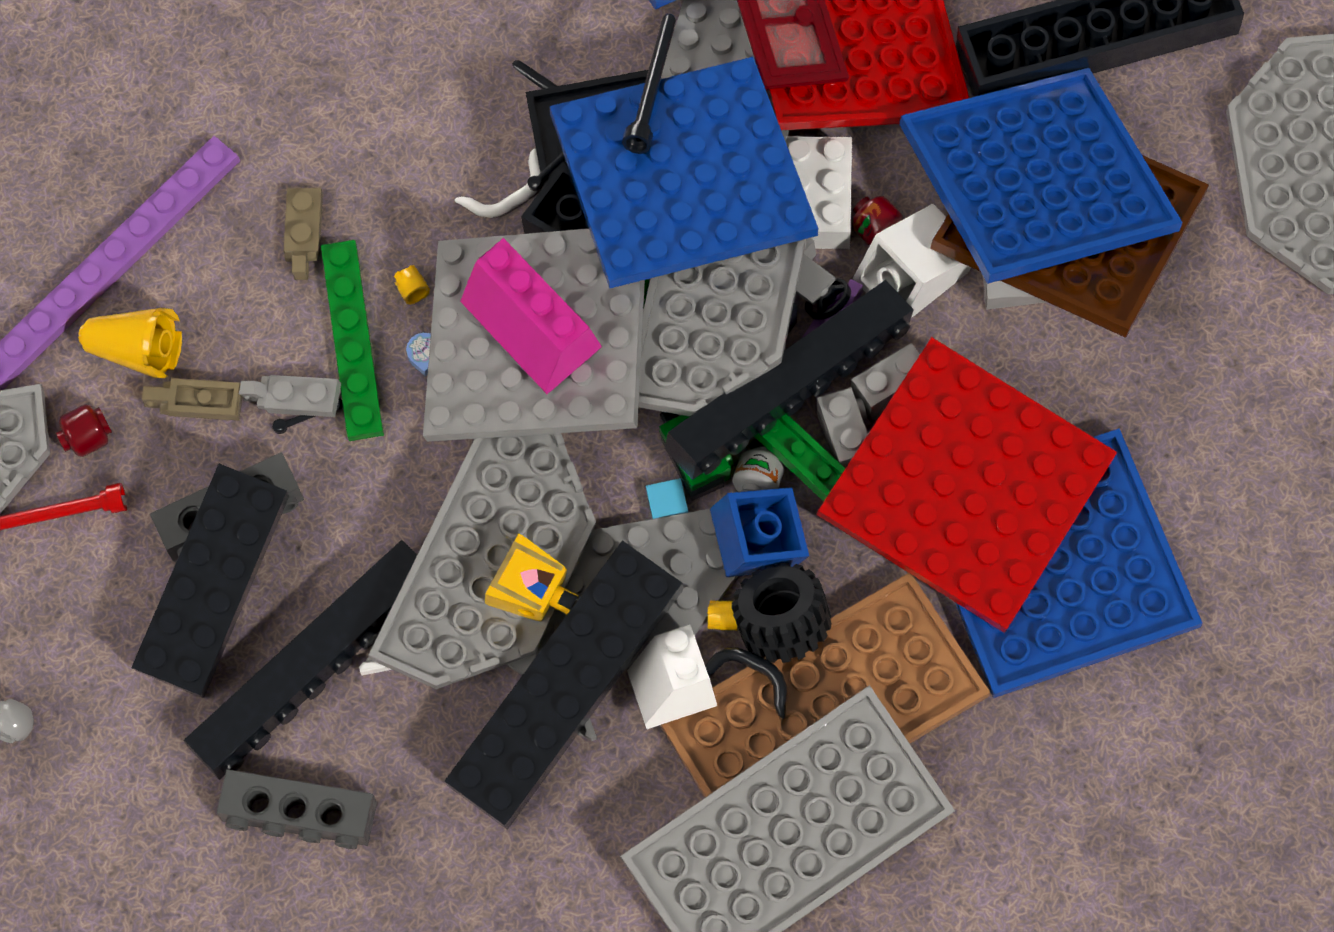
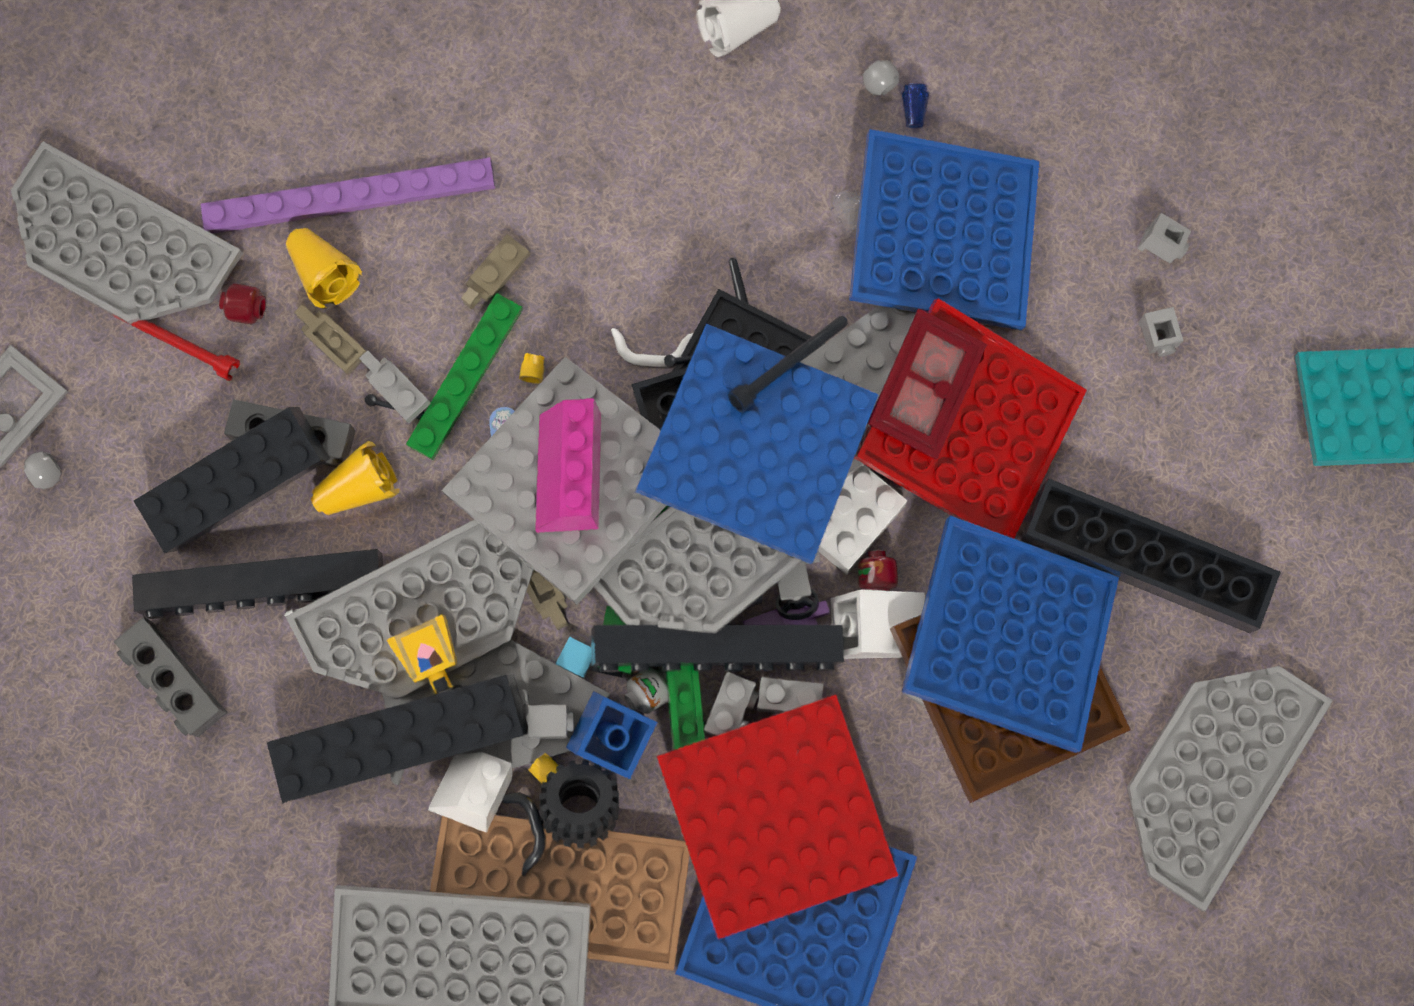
camera: 35 degrees right, 10 degrees up
(329, 502) = (356, 482): none -> yellow cone
(597, 466) = (547, 599): none -> dark tan hinge
(694, 562) = (550, 721): none -> light grey brick

